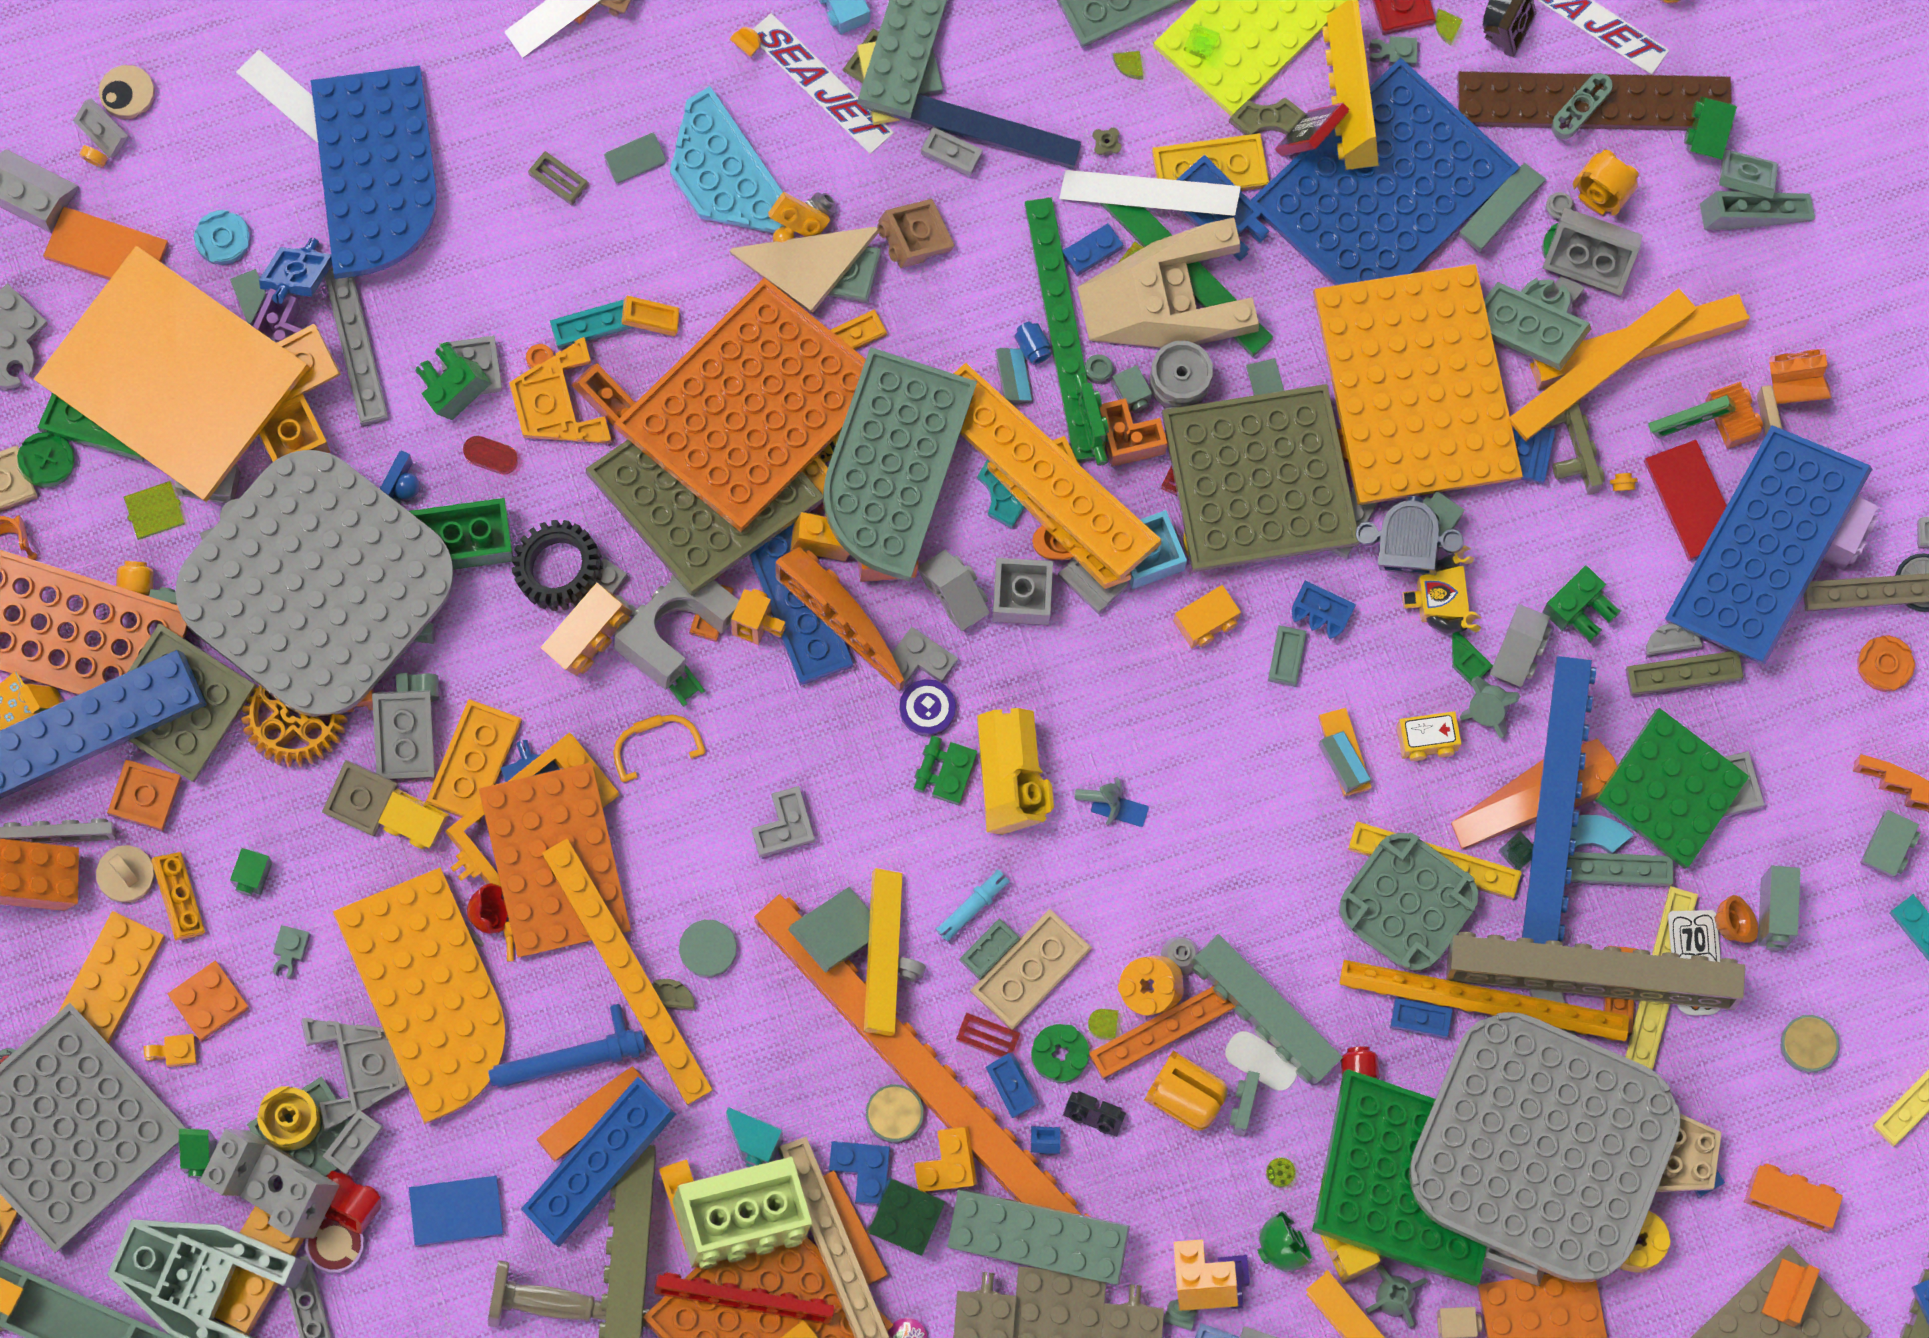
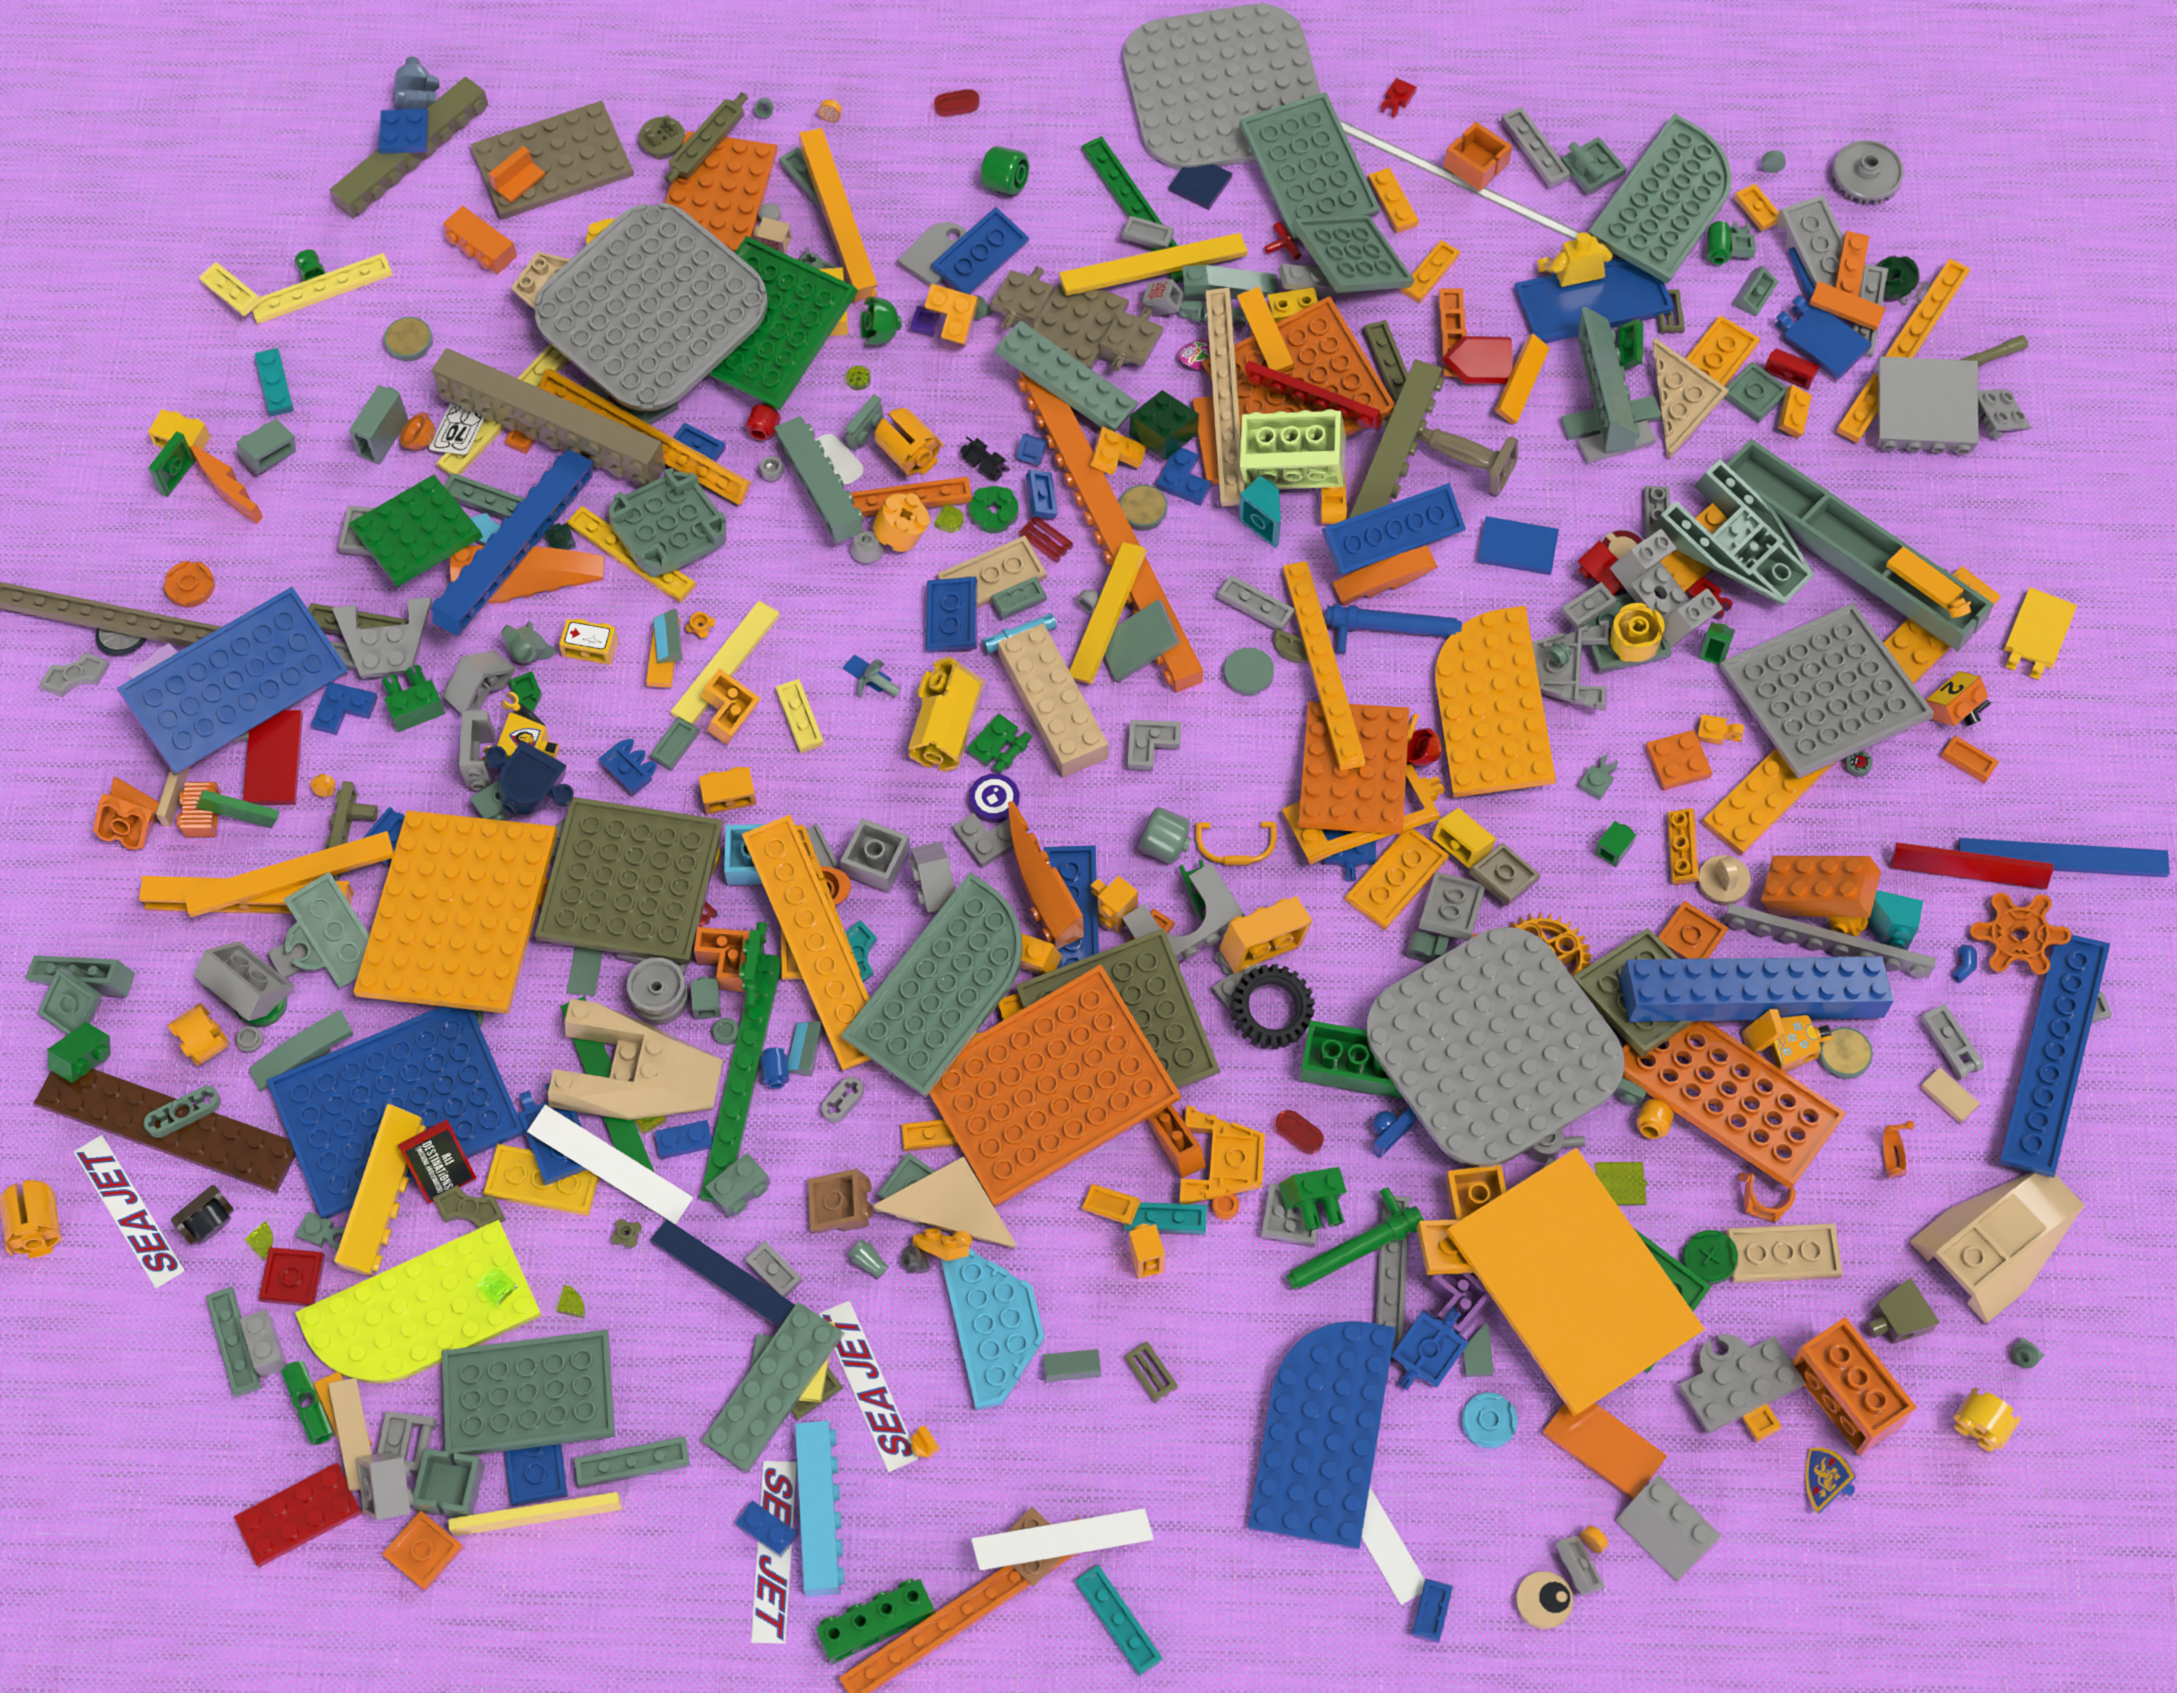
camera: 155 degrees left, 10 degrees down
(225, 1213) = (1701, 585): none -> red plate
(227, 47) = (1432, 1610): none -> blue plate
(365, 377) = (1392, 1229): none -> green cylinder
(368, 1068) = (1560, 653): none -> sand green plate
(598, 274) = (1146, 1250): none -> light orange brick
(726, 1031) = (1256, 603): none -> light grey plate
(730, 715) = (1165, 835): none -> sand green head
(867, 191) = (867, 1258): none -> sand green cone
(906, 834) = (1053, 700): none -> tan brick
(948, 336) = (847, 1103): none -> light grey beam
(1018, 215) = (739, 1185): none -> sand green bracket
(1054, 900) = (951, 614): none -> blue tile
(1169, 732) = (799, 716): none -> light yellow tile
(1239, 706) = (733, 702): none -> light orange brick
(1274, 765) = (728, 659): none -> light yellow tile
(1326, 794) = (700, 618): none -> light orange plate
(1327, 1016) = (771, 468): none -> light grey tile
(1490, 562) = (475, 729): none -> light grey panel
(1639, 648) = (387, 648): none -> light grey wing
(1657, 583) = (340, 701): none -> blue plate

